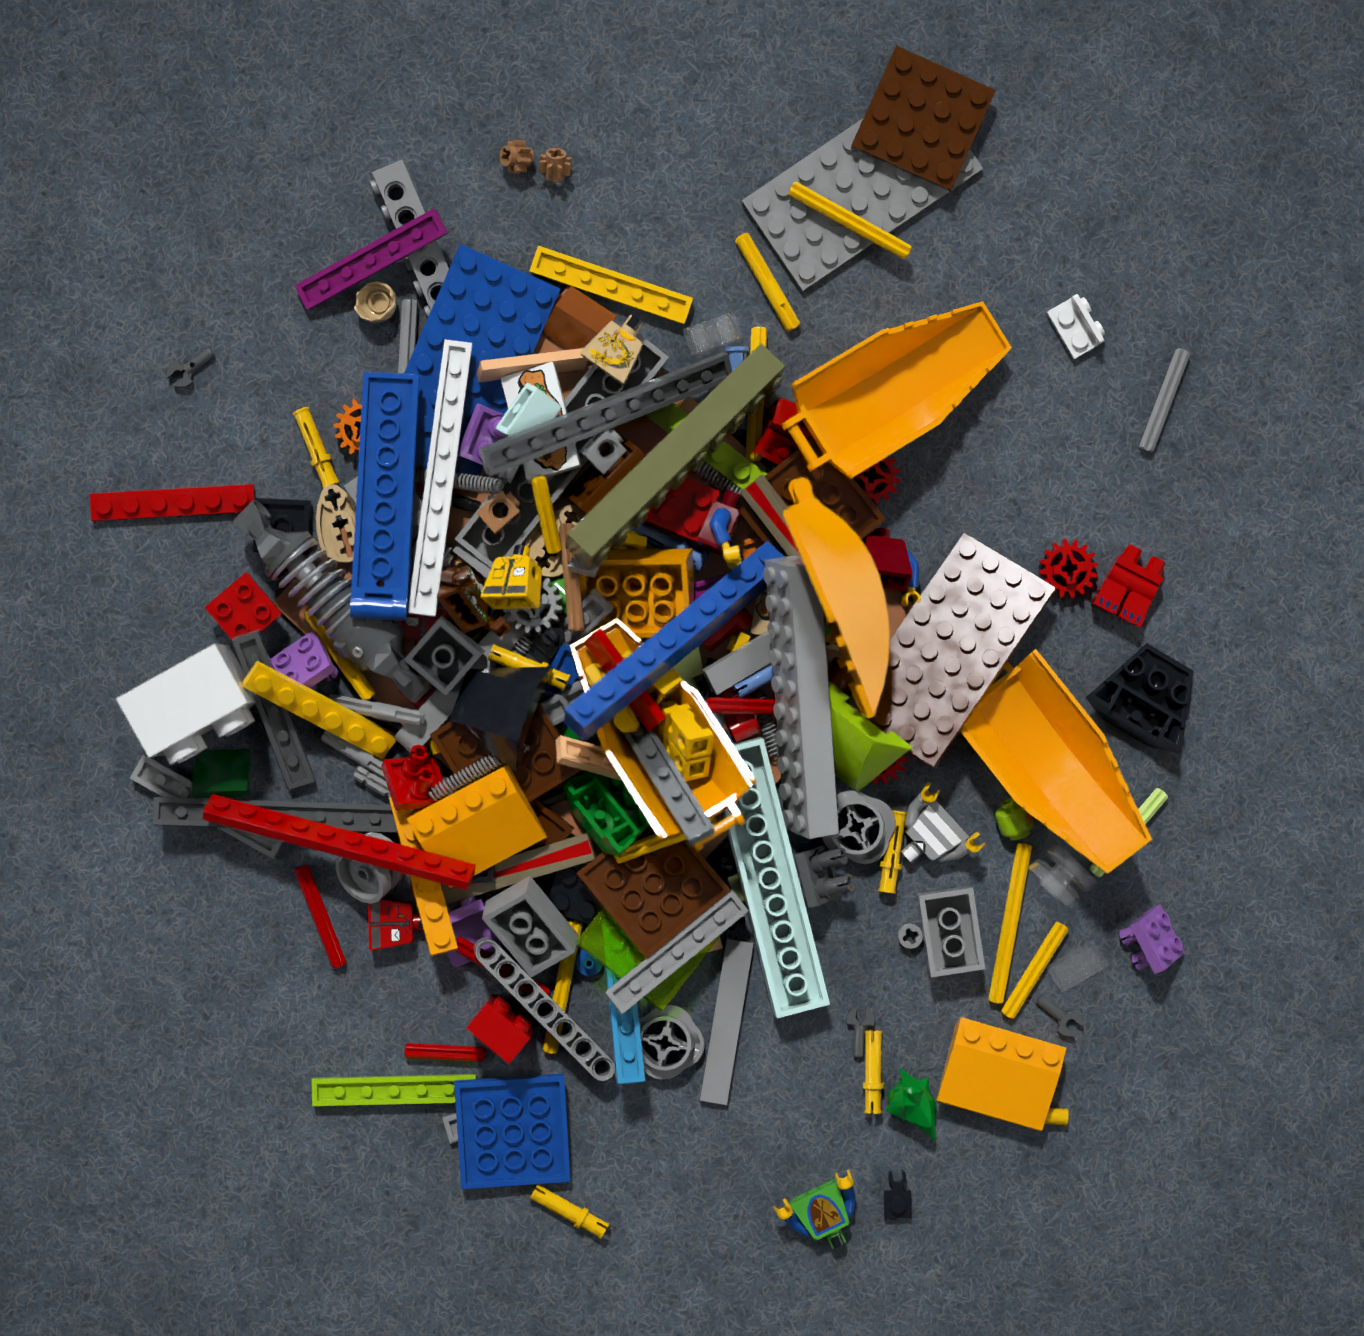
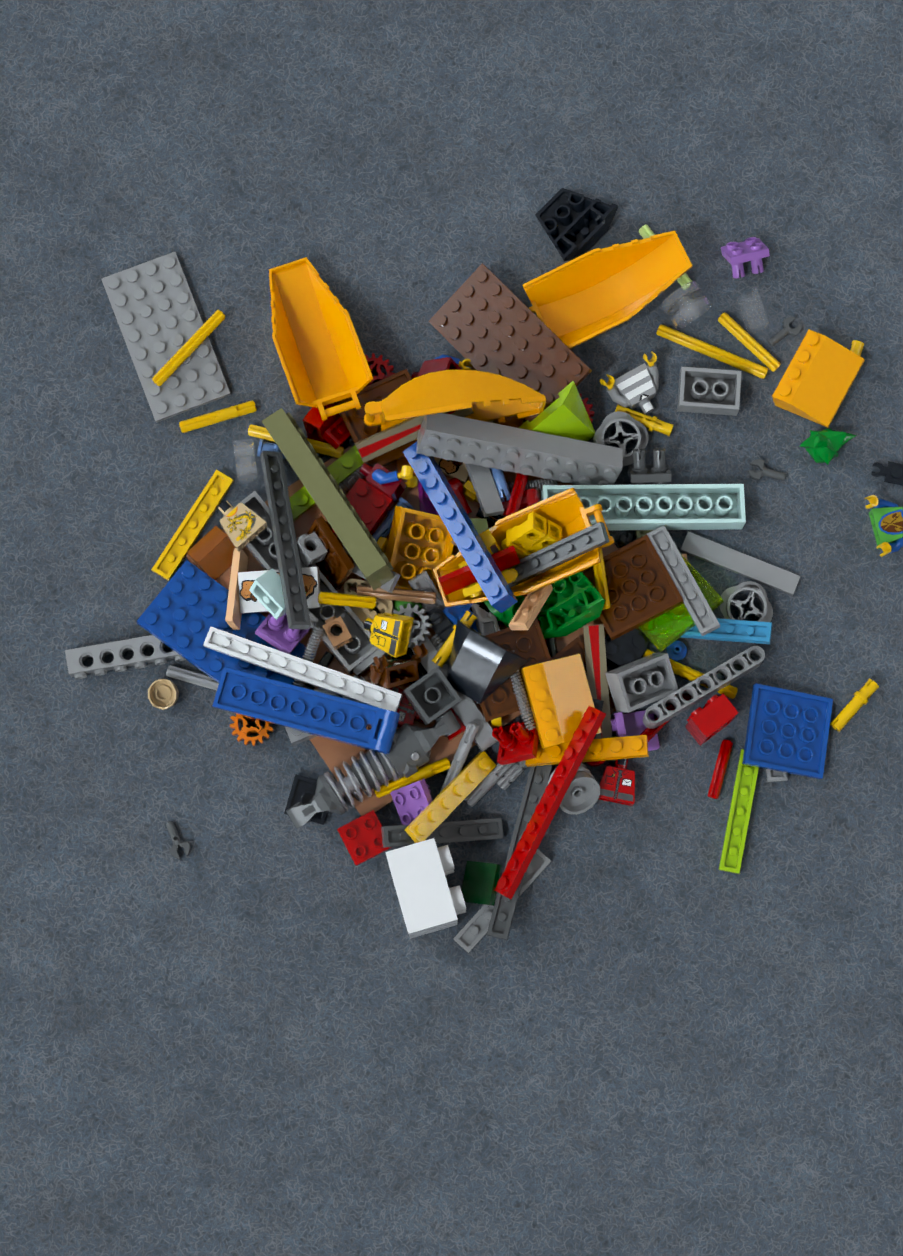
camera: 80 degrees left, 10 degrees down
(170, 502) = (272, 877): red plate -> none
(315, 446) = (282, 758): yellow pin -> none
(320, 916) = (601, 837): red axle -> none
(325, 520) = (322, 766): tan piece -> none
(371, 259) = (131, 688): magenta plate -> none
(516, 156) = (83, 570): medium nougat gear -> none
(555, 165) = (97, 544): medium nougat gear -> none
(873, 1072) = (798, 468): yellow pin -> none
(918, 939) = (702, 426): light grey bush -> none
(923, 118) = (129, 282): reddish brown plate -> none
(1013, 820) = (639, 331): lime head -> none
(1067, 555) = (462, 255): red gear -> none
(1076, 326) = (301, 212): white bracket -> none
(1134, 579) = (493, 217): red hips -> none
(1164, 400) = (368, 166): light grey axle -> none

